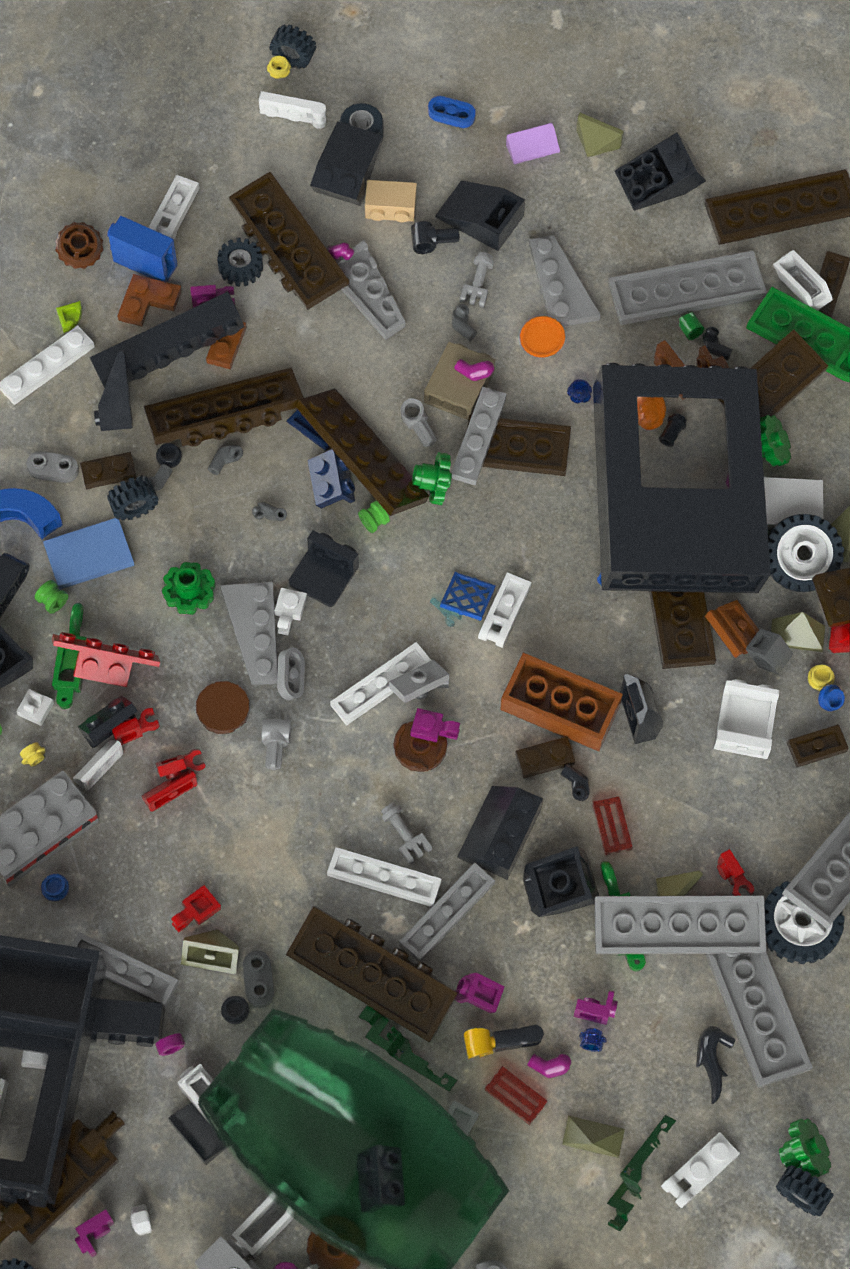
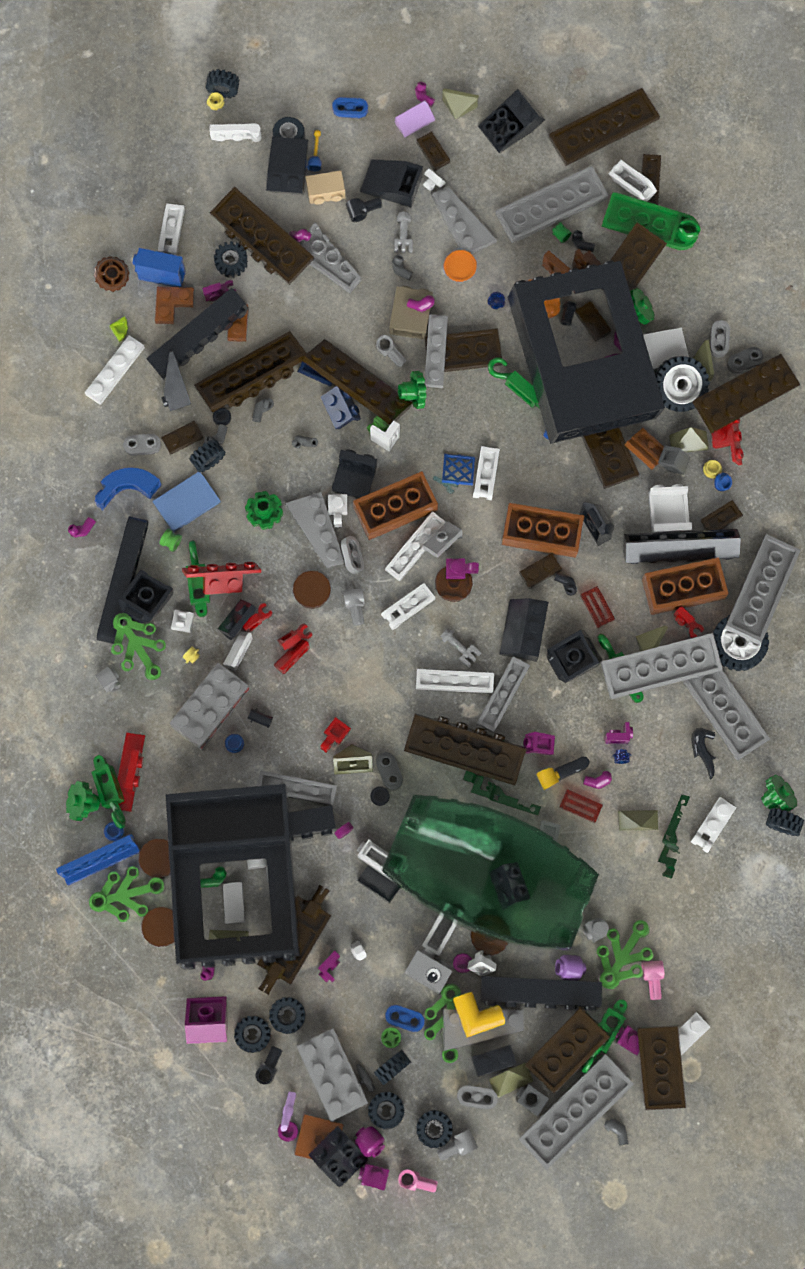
camera: 15 degrees left, 10 degrees up
(100, 861) = (260, 718): none -> black pin
(348, 760) = (408, 606): none -> white plate
(367, 622) = (395, 505): none -> dark orange brick
(381, 531) = (388, 438): none -> white panel
(385, 168) = (314, 163): none -> blue hinge
(535, 223) = (433, 180): none -> white tile
(546, 187) = (433, 151): none -> dark brown plate
(550, 115) = (421, 94): none -> magenta arm
(575, 500) = (515, 382): none -> green piece
(704, 447) = (593, 321): none -> dark brown plate
(743, 823) = (685, 586): none -> dark orange brick
(751, 769) = (681, 546): none -> black brick

